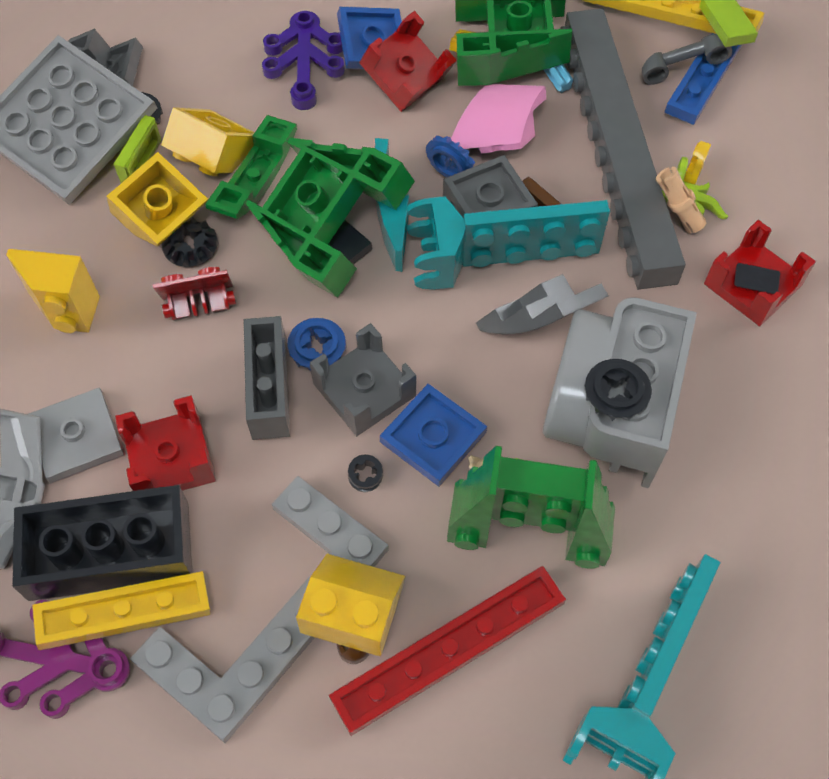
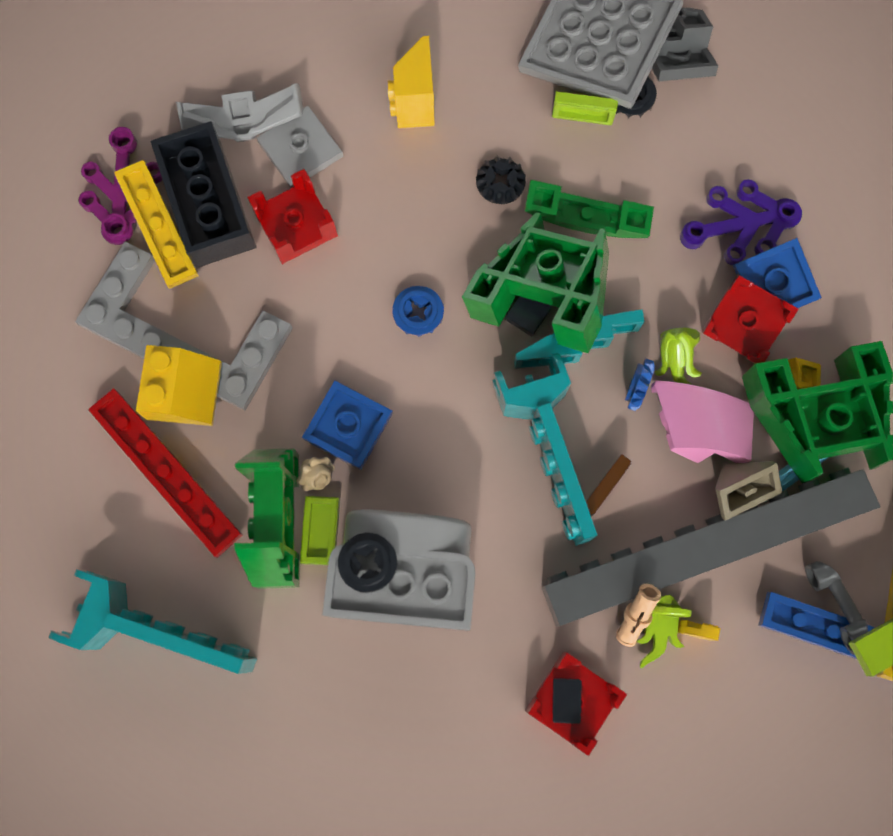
camera: 80 degrees right, 15 degrees up
(155, 200) = (526, 139): yellow slope -> none
(177, 289) = (438, 194): red hinge -> none
(207, 140) = (614, 164): yellow slope -> none
(266, 378) = (368, 275): dark grey brick -> none
(360, 463) = (297, 384): black bush -> none
(364, 382) = (385, 357): dark grey panel -> none
(421, 124) = (678, 352): none -> lime piece
(487, 188) = (599, 429): dark grey panel -> none
(540, 307) = (484, 499): dark grey slope -> none
(567, 97) = (746, 486): none -> dark tan slope

